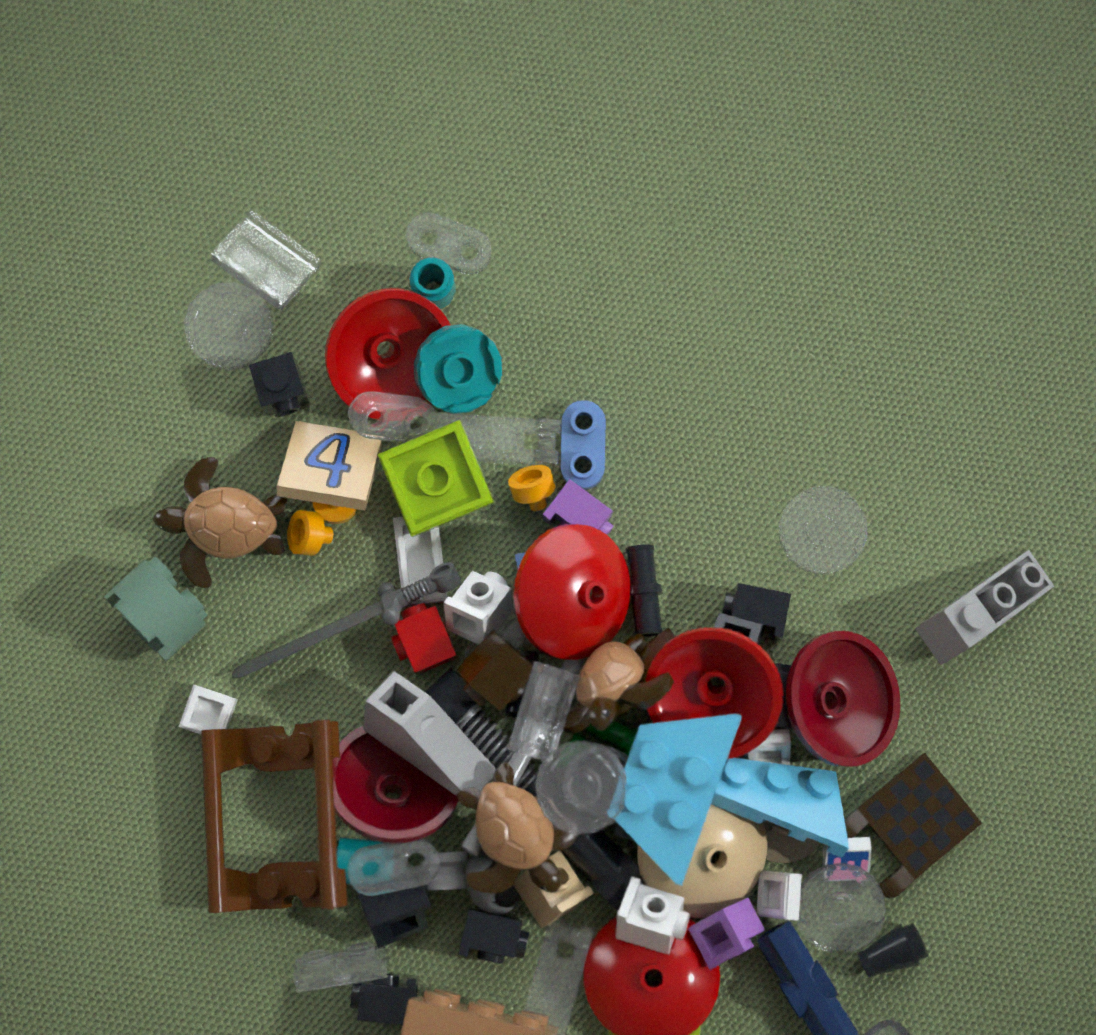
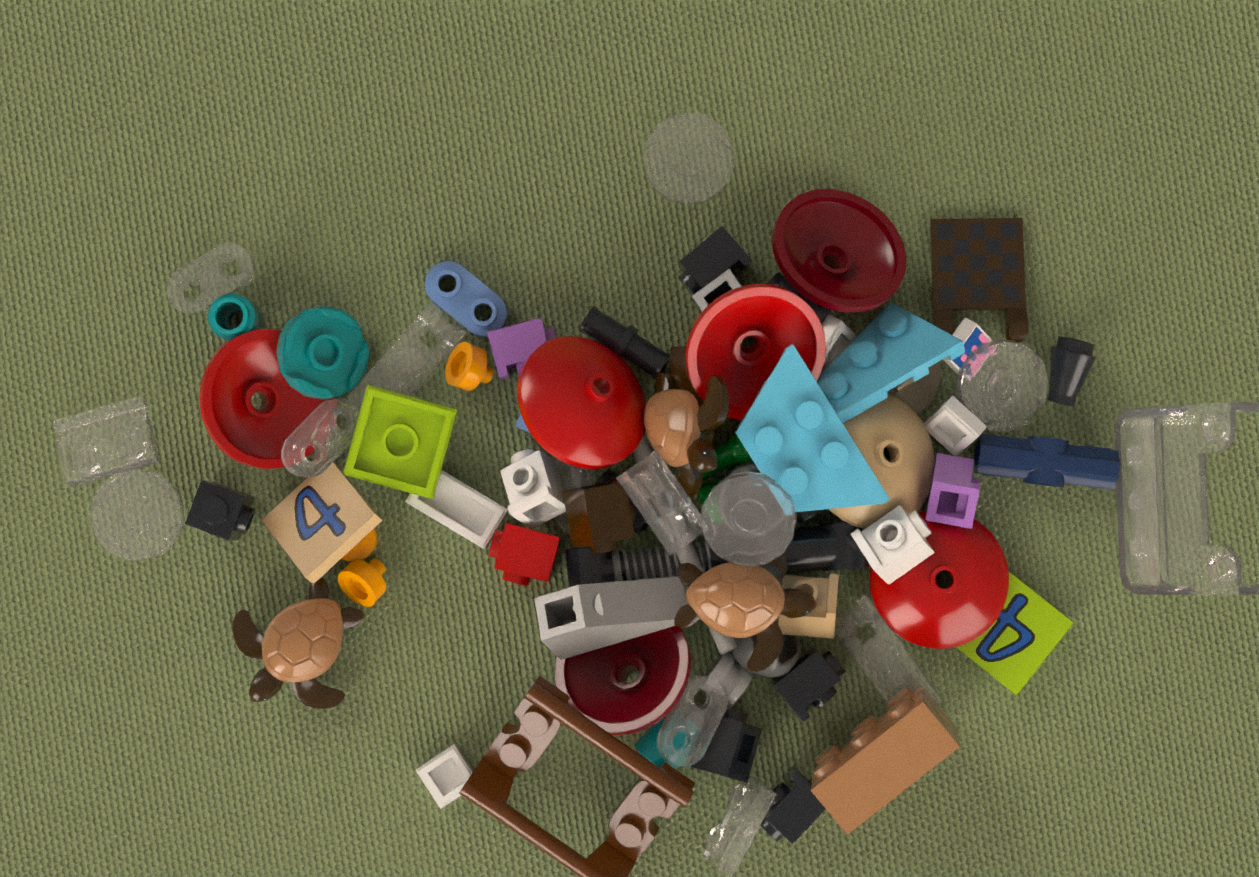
camera: 55 degrees left, 5 degrees up
(156, 608) = (329, 753): sand green brick -> none
(441, 579) = (487, 500): dark grey sword -> none
(984, 607) = (853, 78): light grey slope -> none

